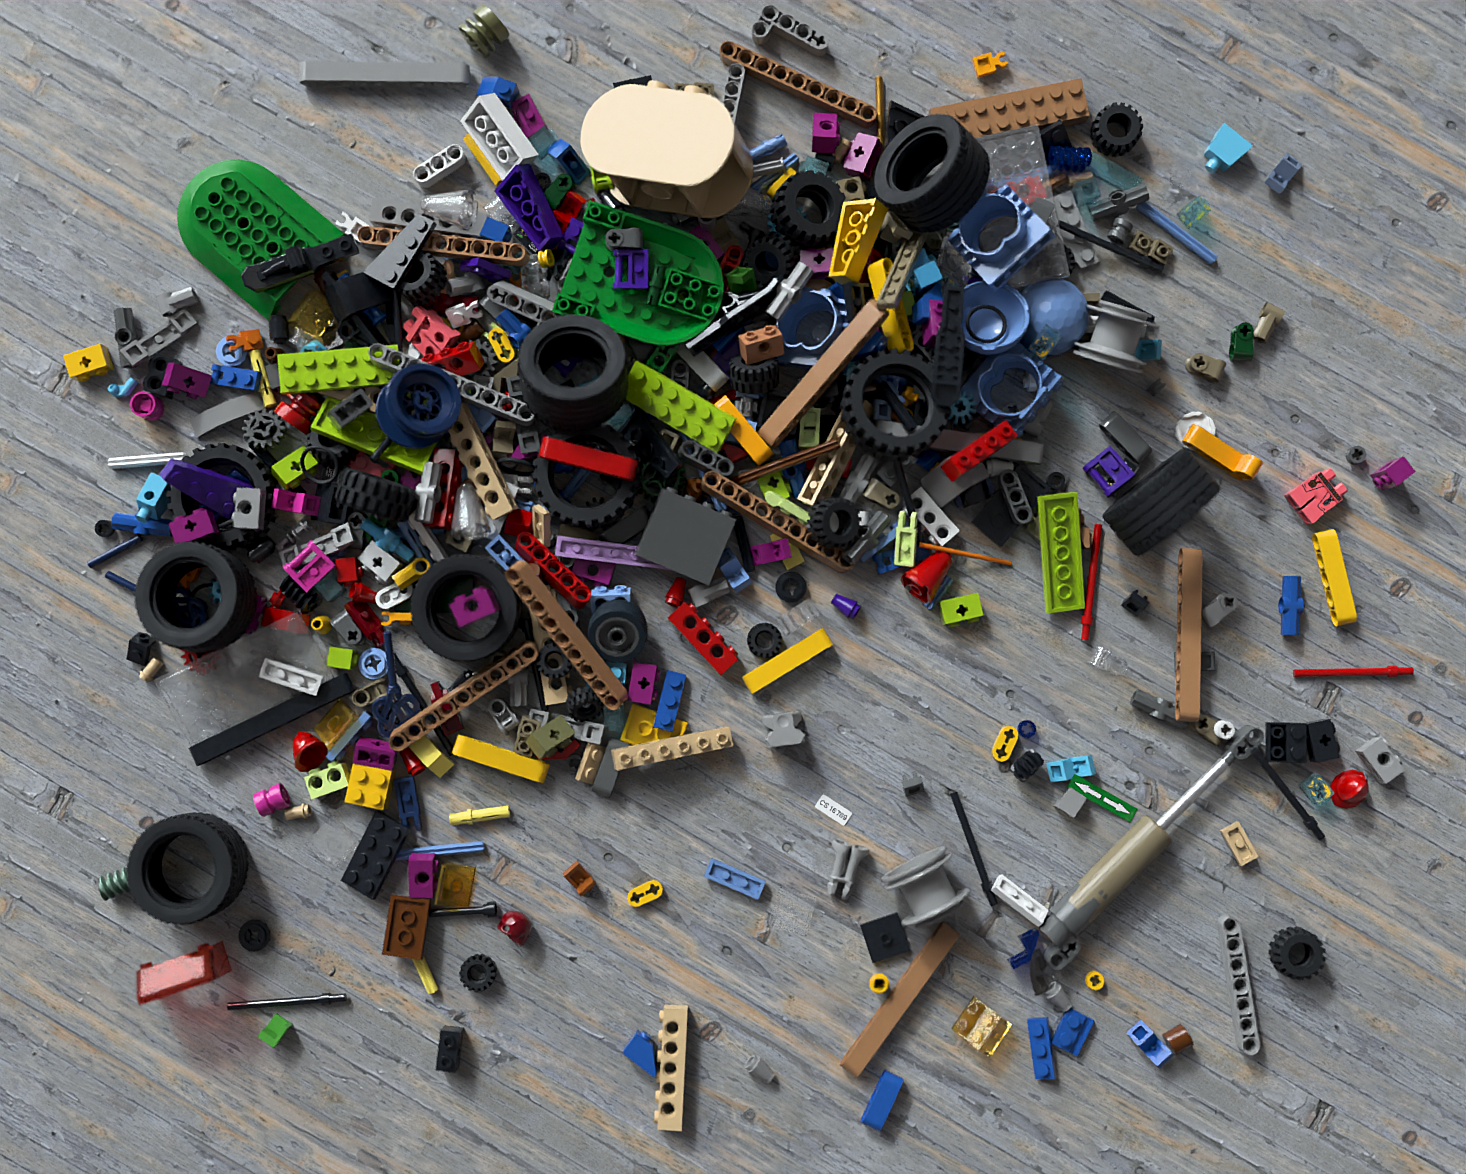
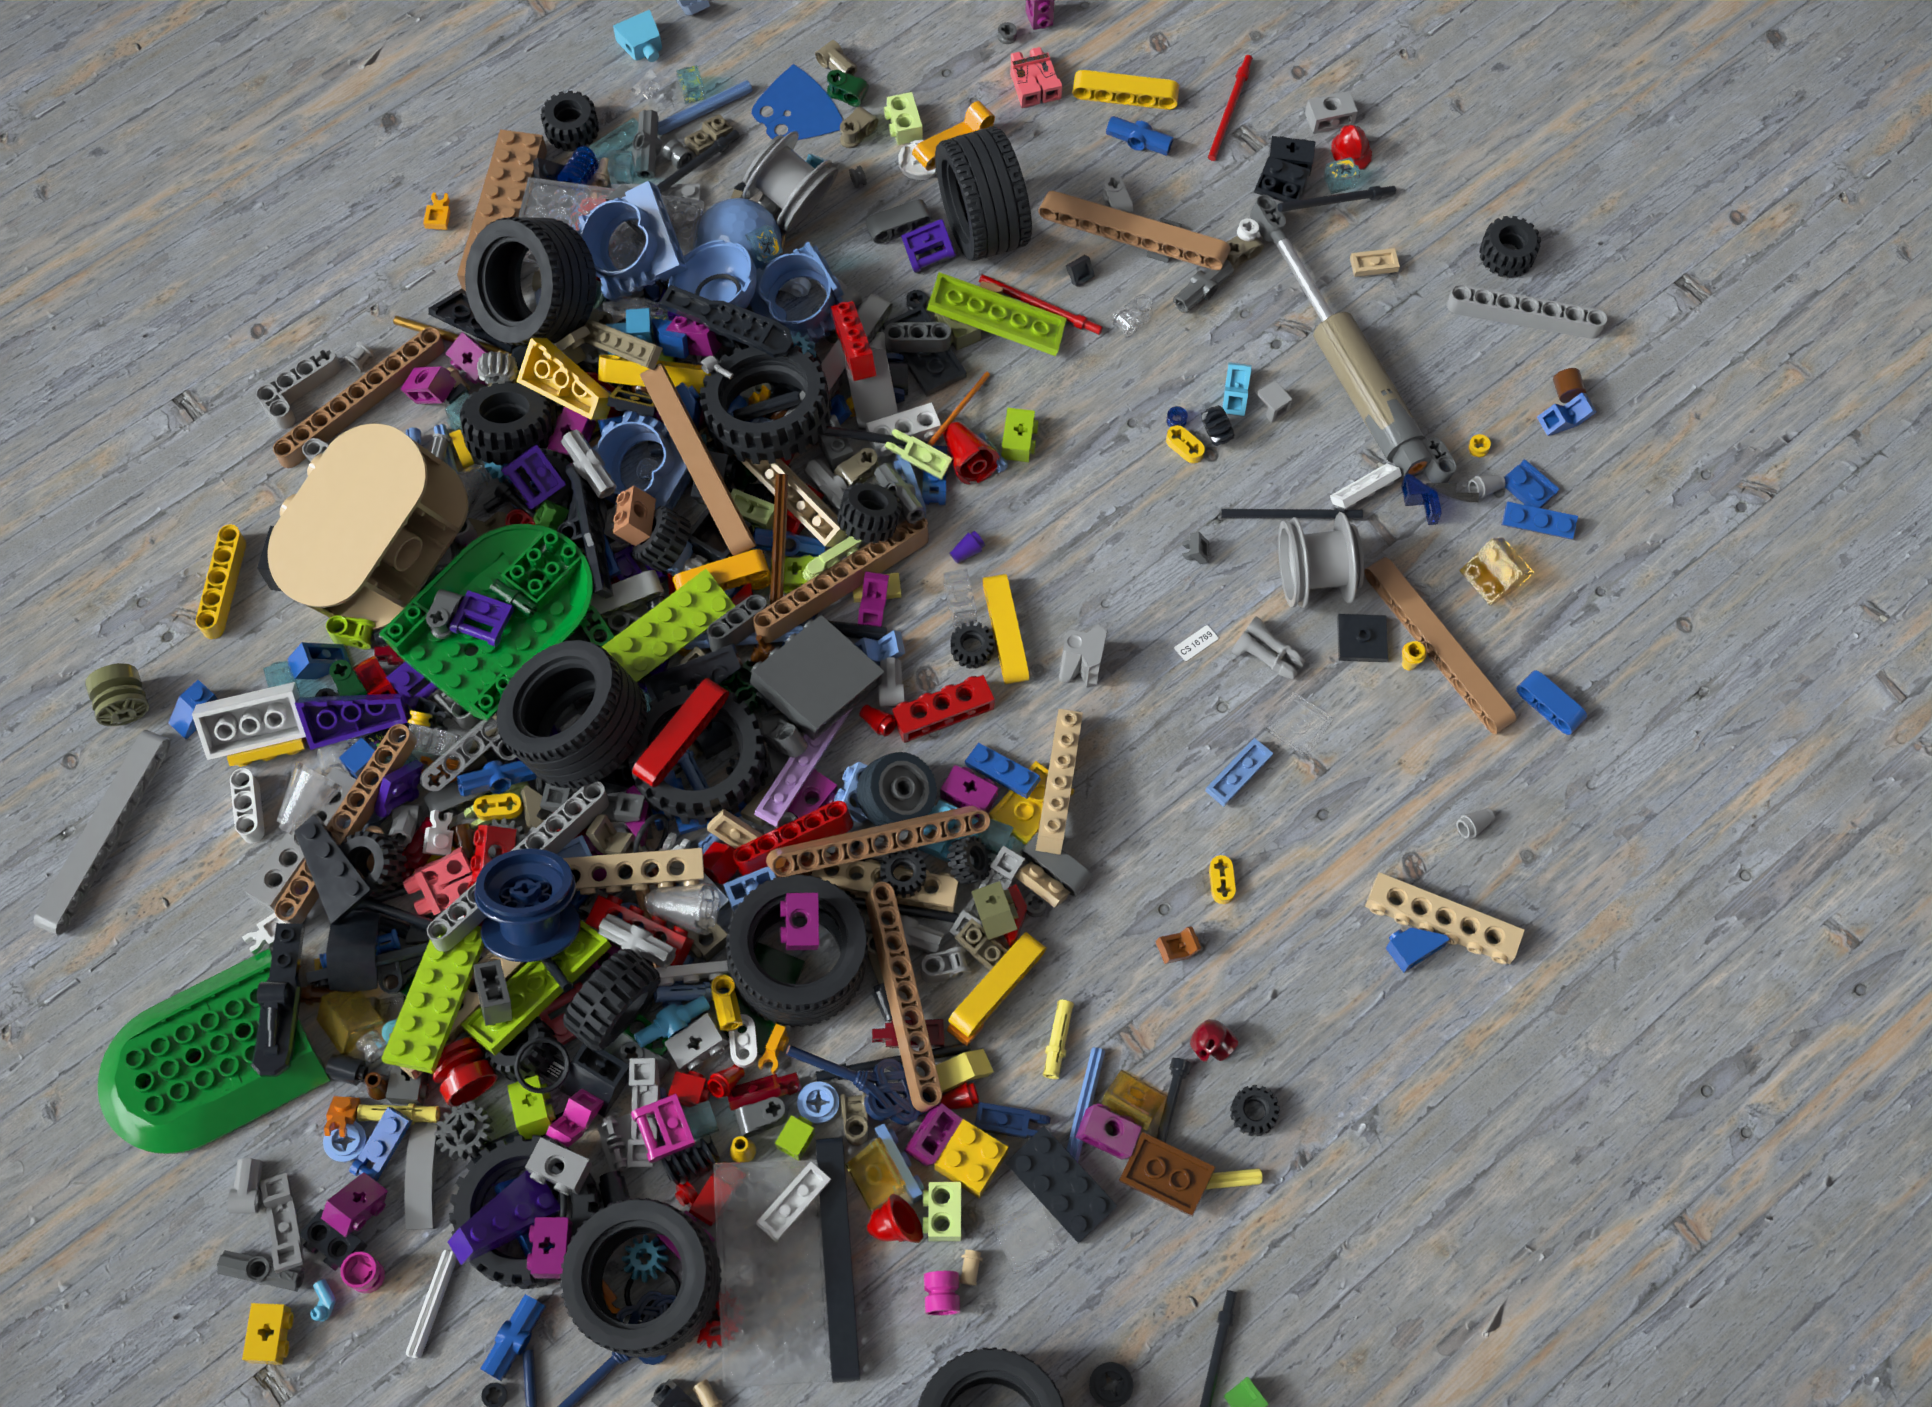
camera: 75 degrees left, 20 degrees down
(152, 498) = (495, 1307): medium azure torso -> none
(449, 1048) = (1340, 1177): black brick -> none
(527, 115) = (240, 683): magenta wing -> none
(596, 54) = (224, 591): none -> yellow beam
(625, 534) = (786, 739): none -> dark grey piece
(767, 255) = (539, 471): none -> dark purple plate
(796, 579) = (915, 590): black gear -> none
(833, 66) = (359, 356): none -> light grey bush
(852, 180) = (496, 367): none -> light grey gear
(905, 348) = (711, 364): none -> light grey hand
(1102, 798) = (1280, 370): green sticker -> none
(1222, 308) = (809, 105): none -> blue piece
(1230, 404) = (904, 118): none -> yellowish green brick

